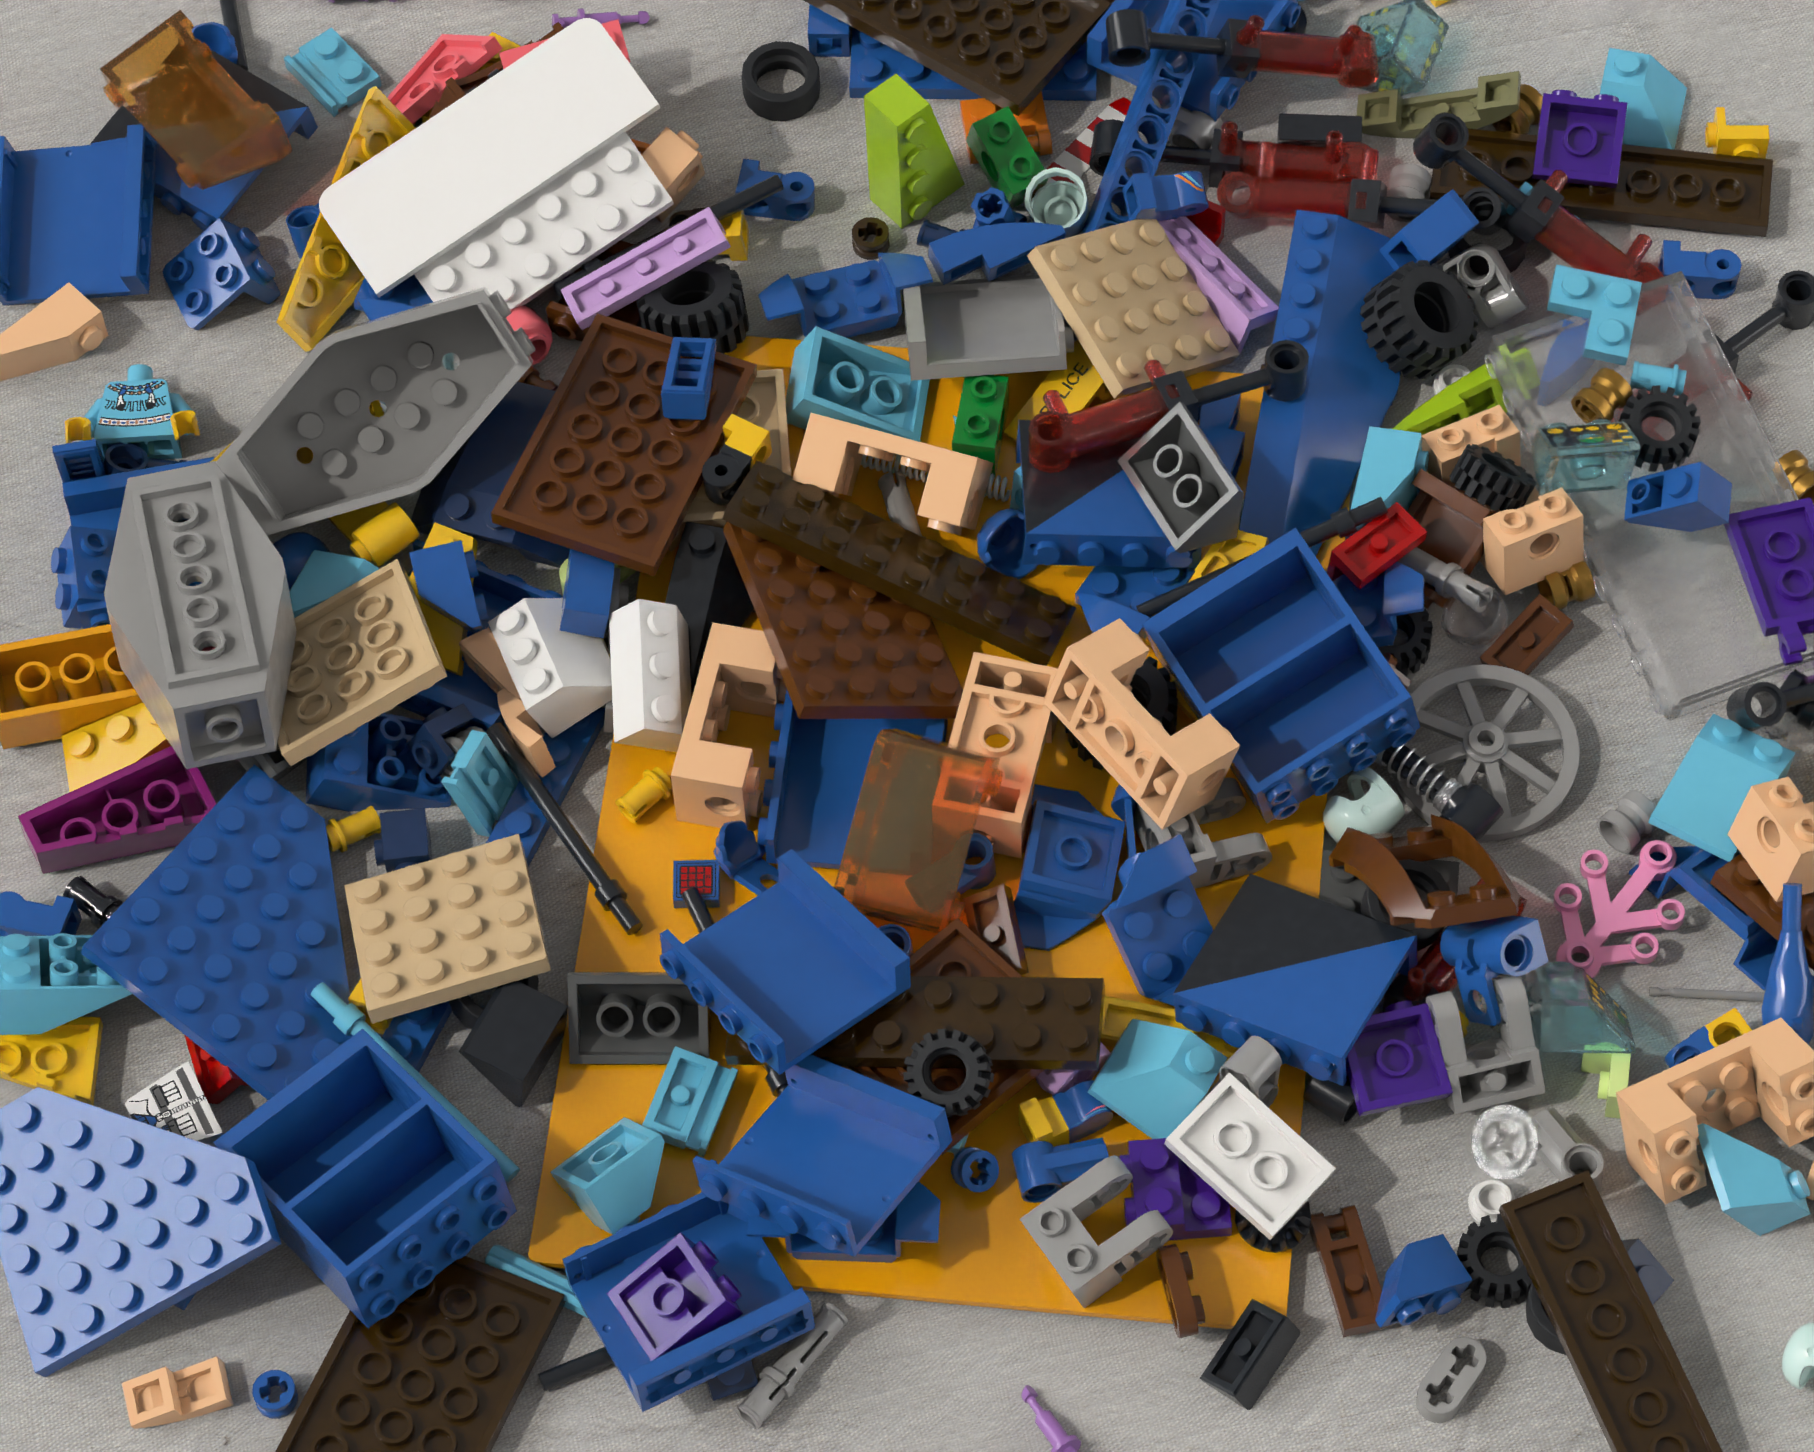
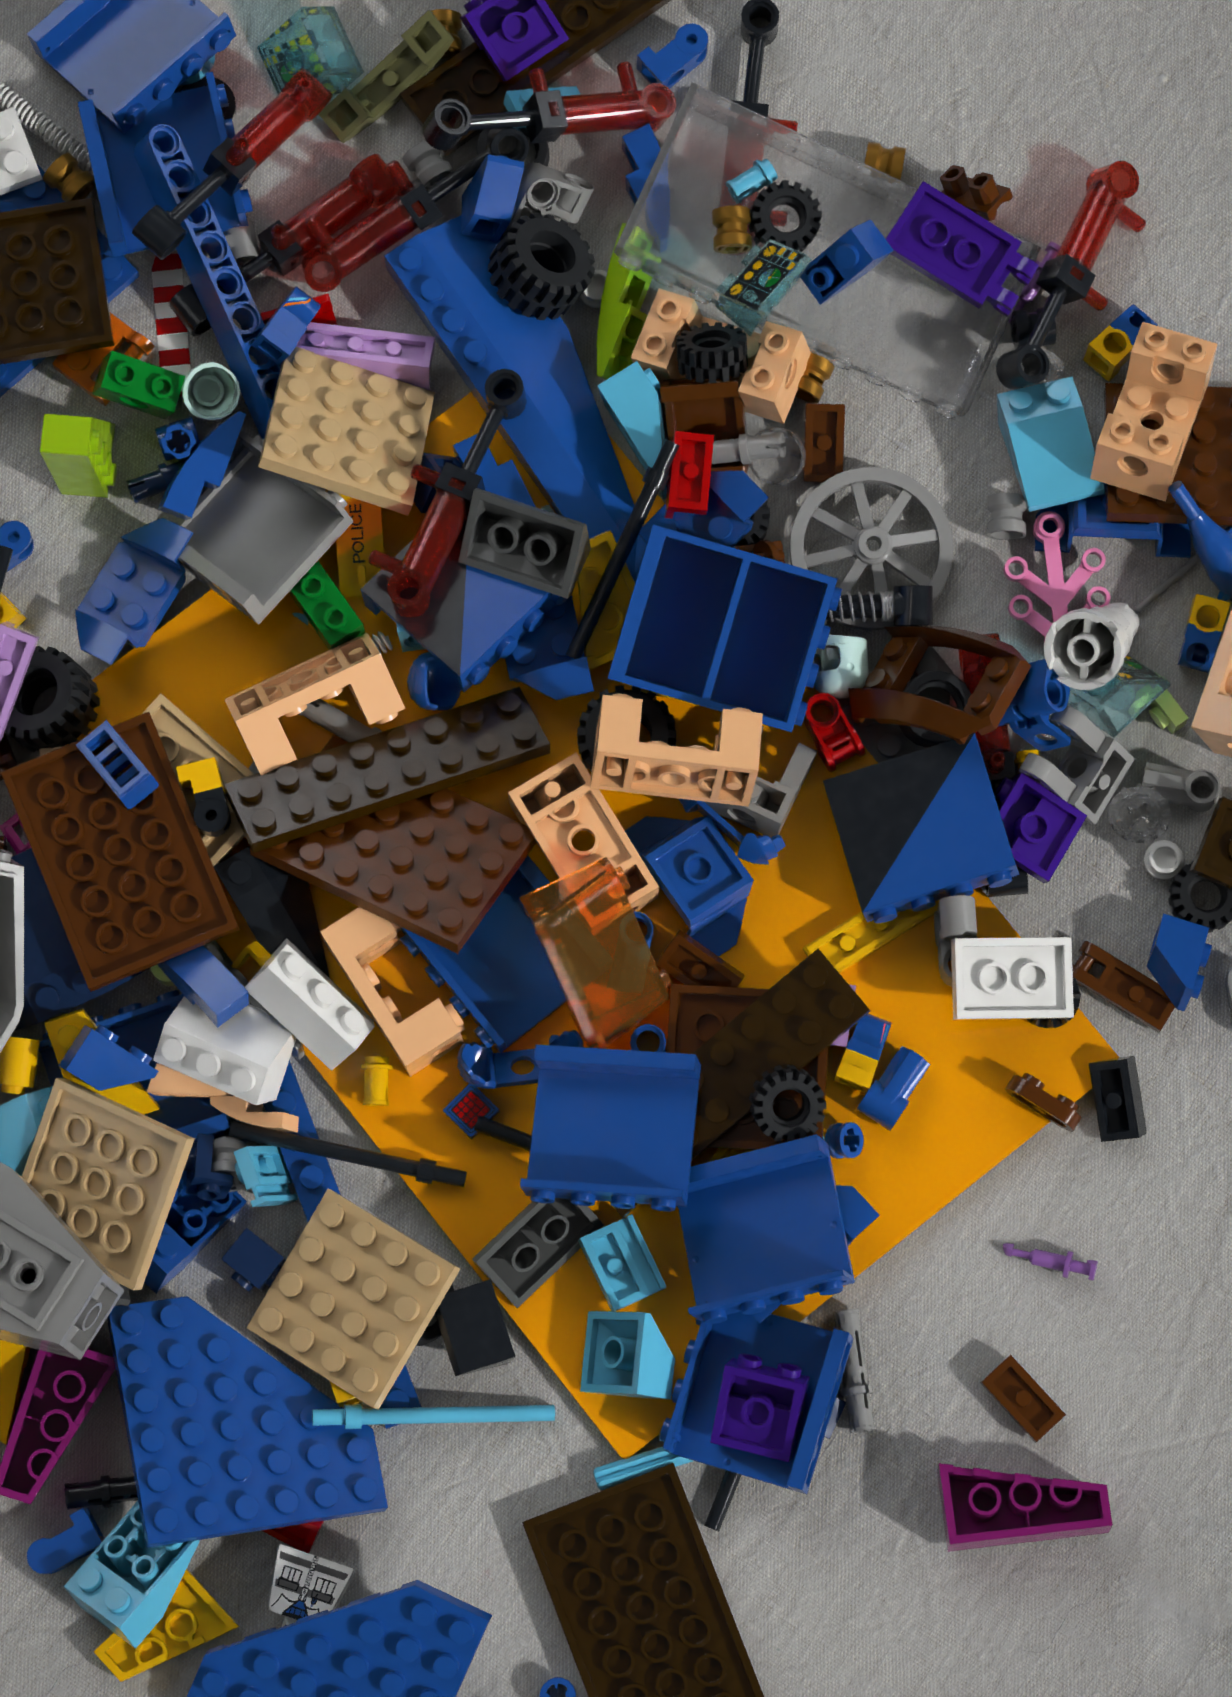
camera: 45 degrees left, 20 degrees up
(352, 829) = (205, 1281): yellow pin -> none
(370, 1177) = (484, 1512): blue container -> none
(854, 386) = (215, 661): medium azure slope -> none
(860, 233) = (85, 527): dark brown bush -> none
(1069, 1247) = (956, 1139): light grey brick -> none
(1156, 1076) = (899, 974): medium azure slope -> none
(1159, 920) = (809, 872): blue piece -> none
(1175, 1190) = (974, 1045): dark purple plate -> none
(1299, 856) = (833, 733): none -> red piece
(1314, 128) = (326, 170): black slope -> none
(1592, 942) = (1090, 644): none -> white cone
(1606, 302) = (672, 154): medium azure plate -> none

